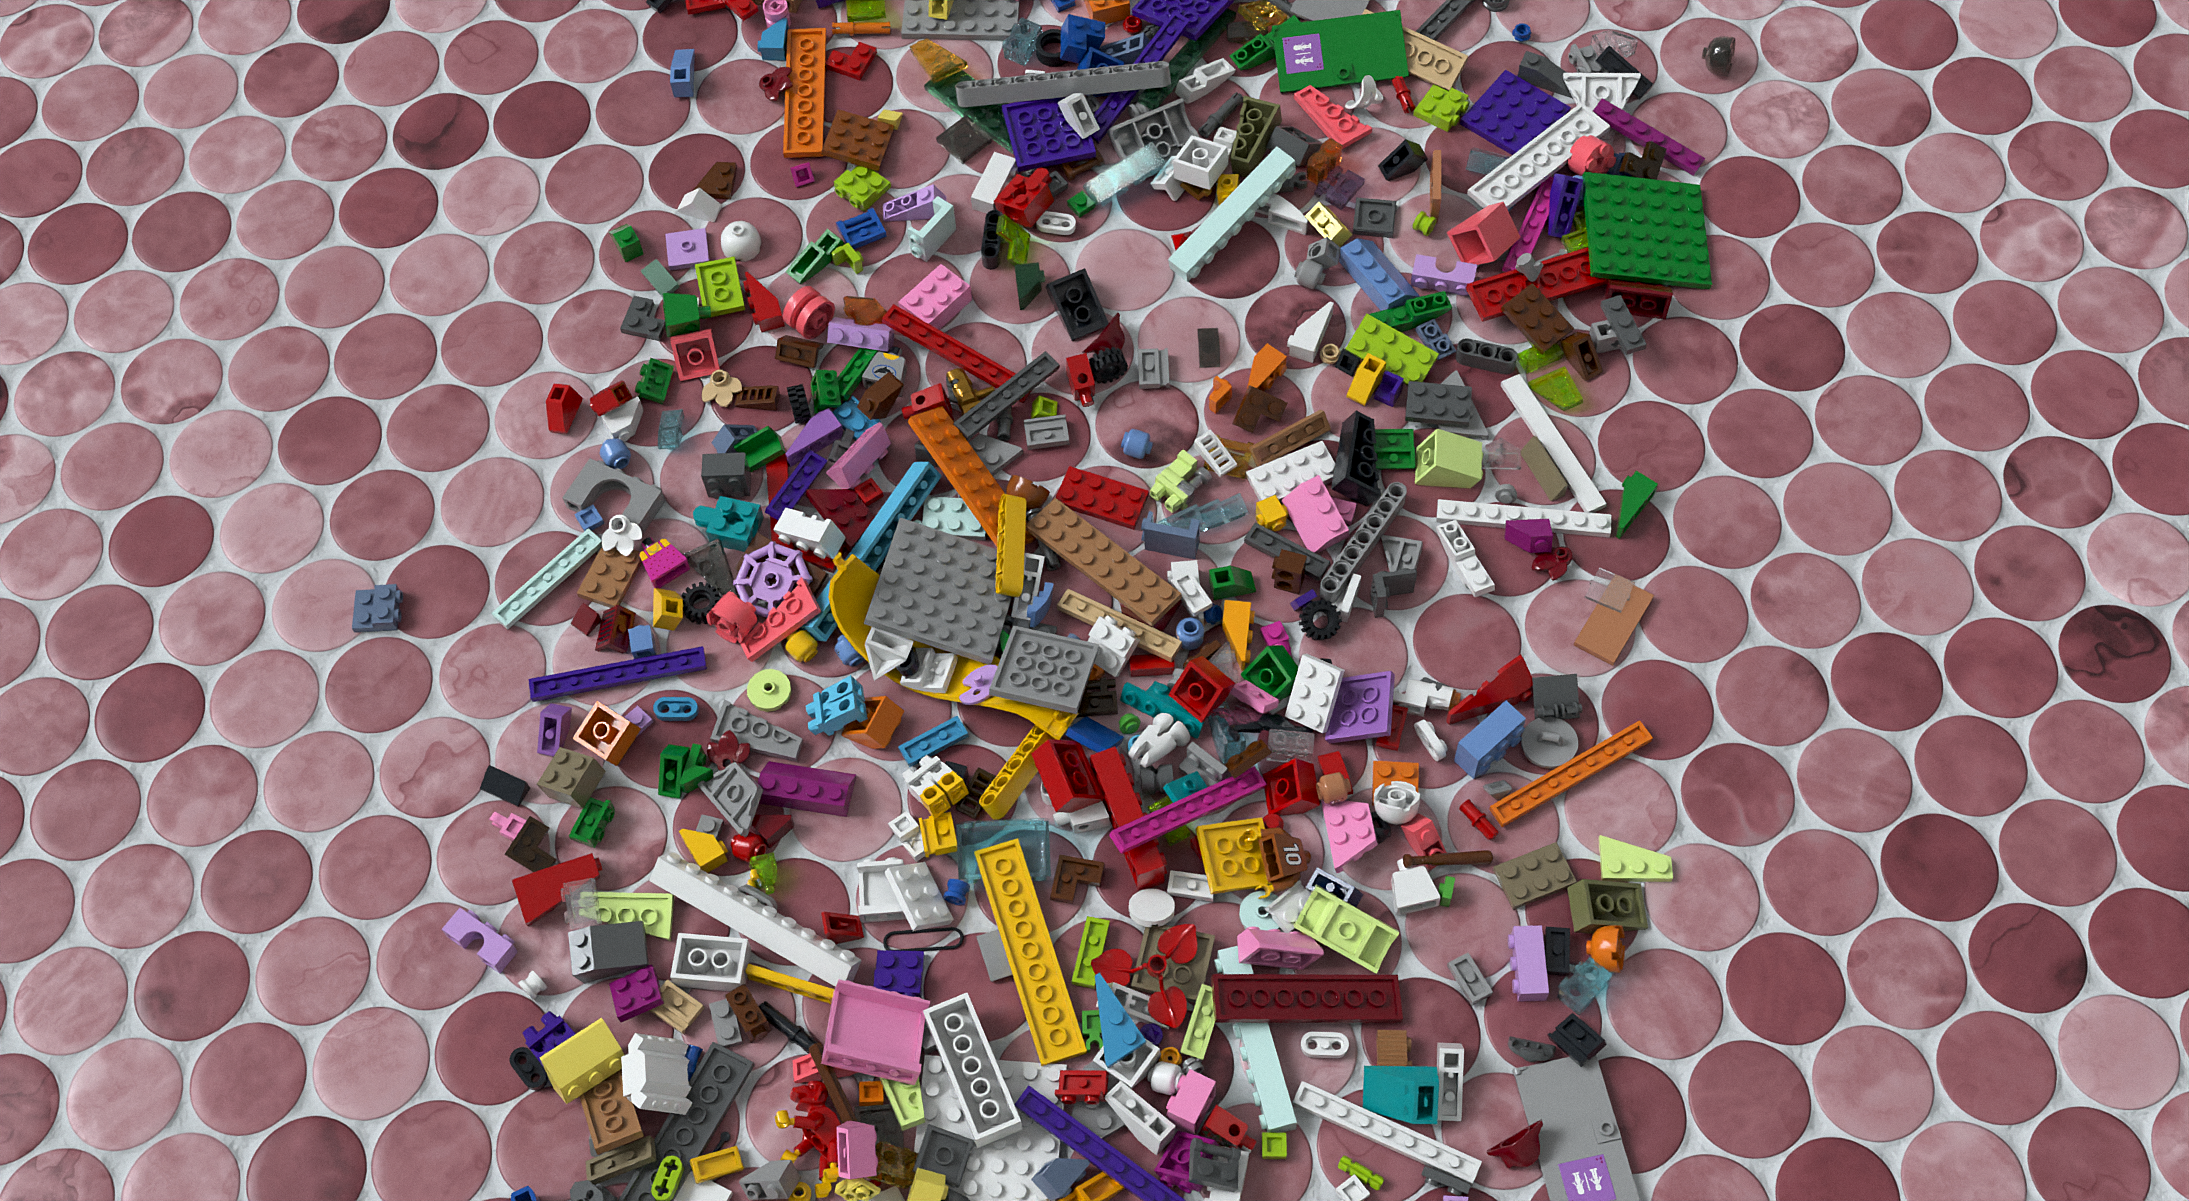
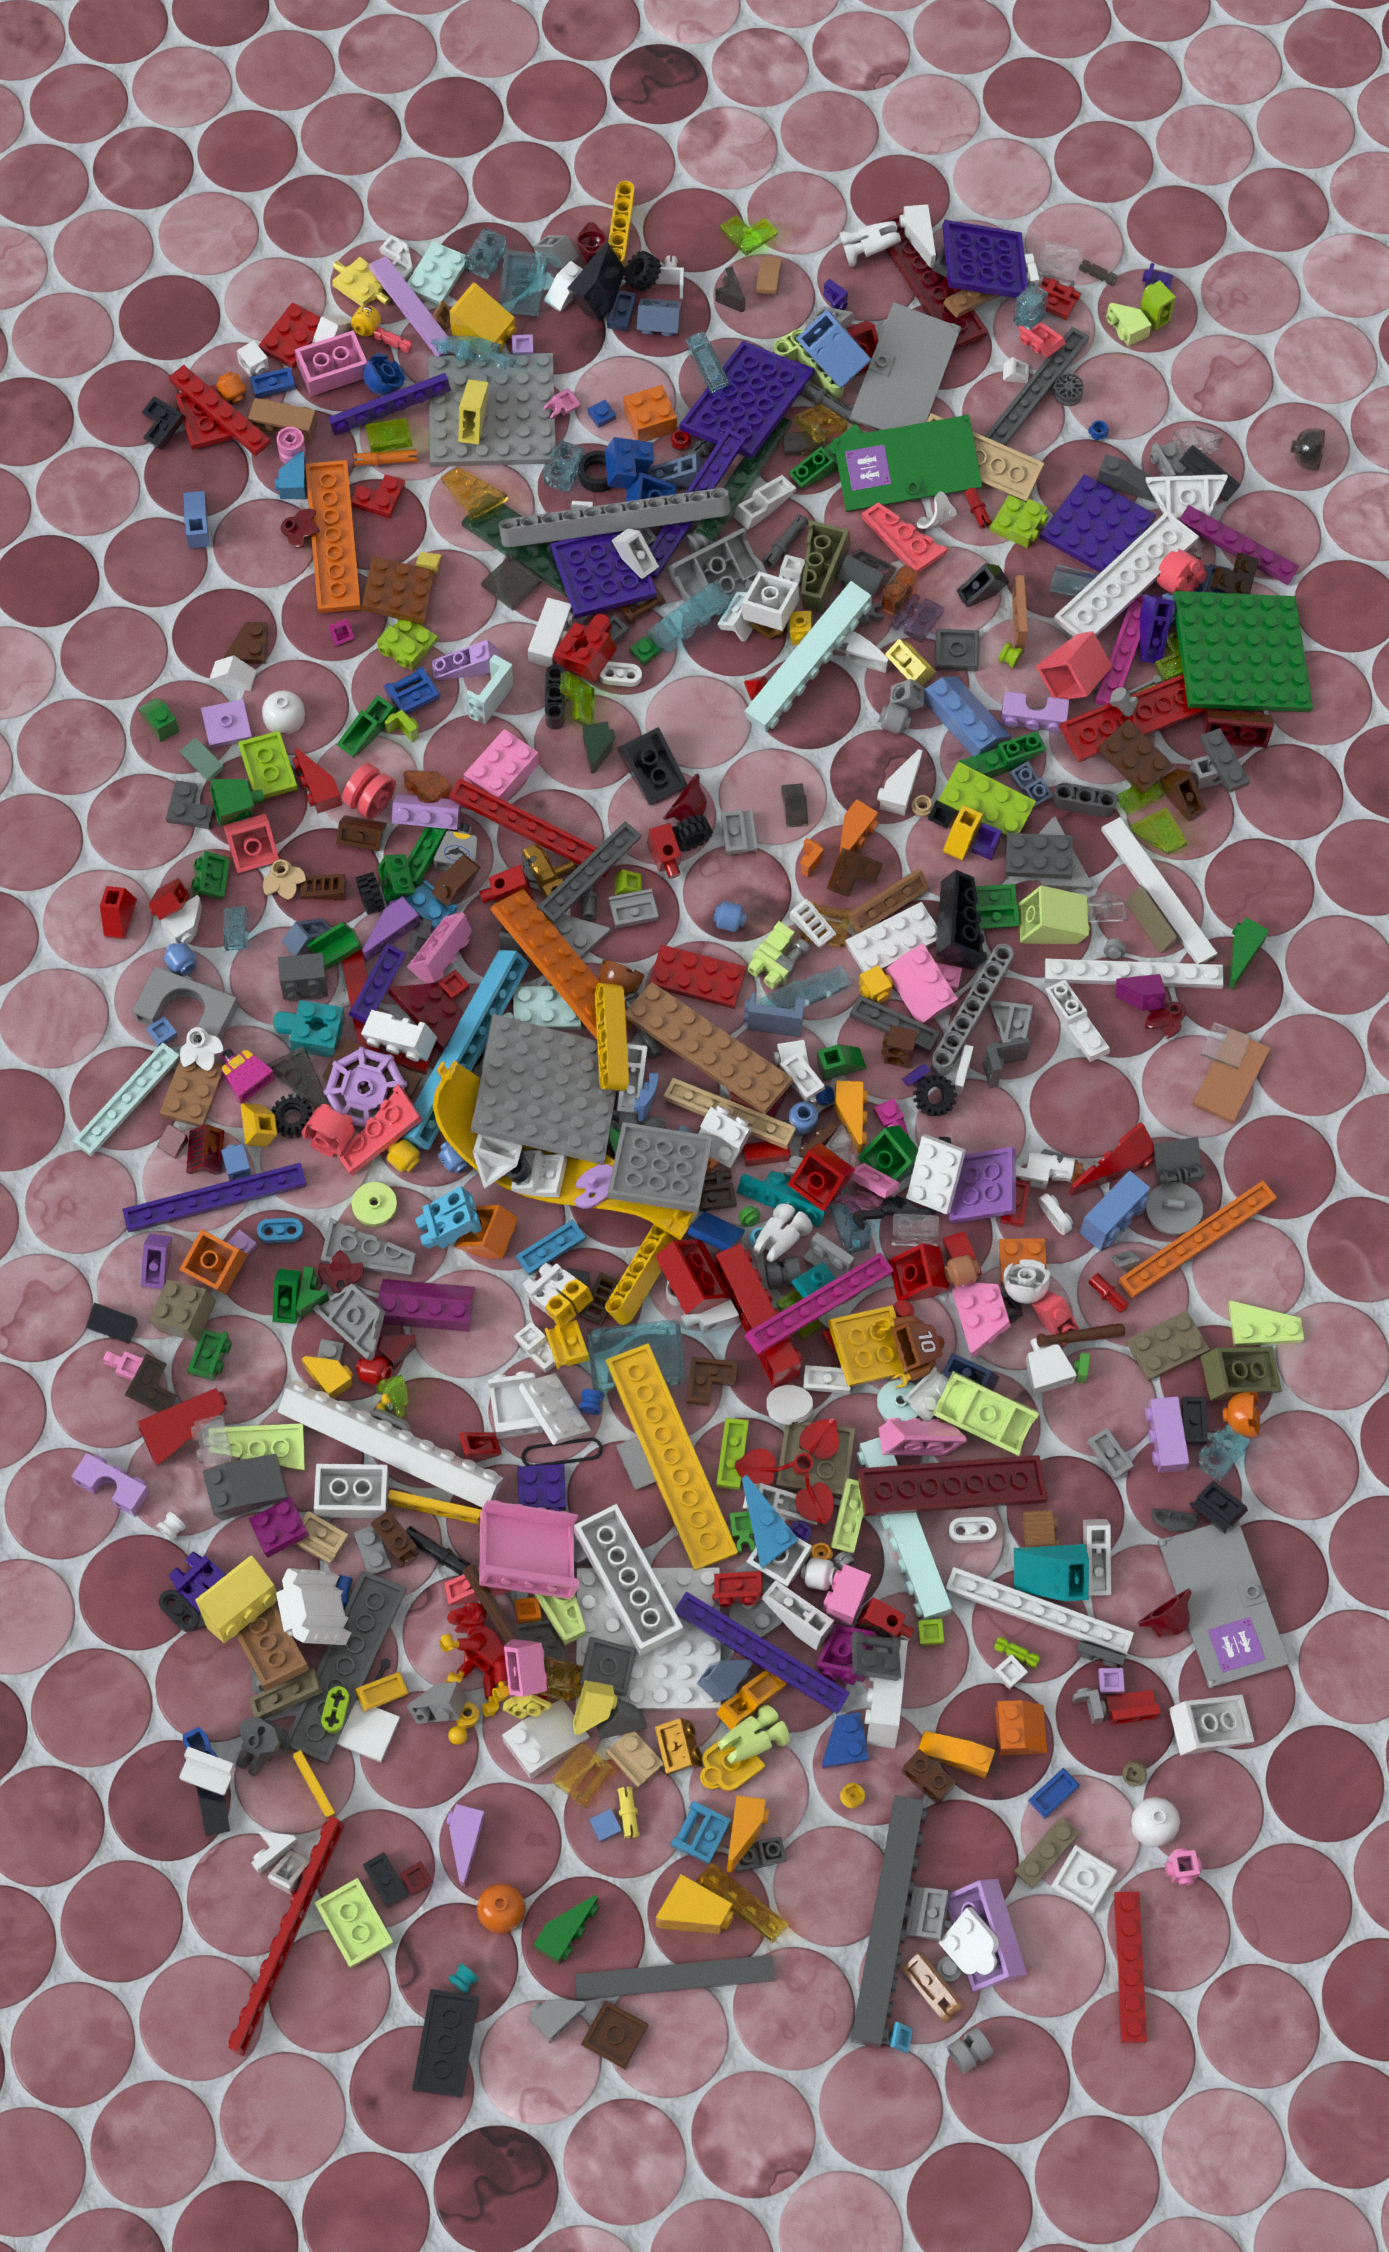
camera: 10 degrees left, 5 degrees up
(1245, 760) = (873, 1246): reddish brown plate -> none

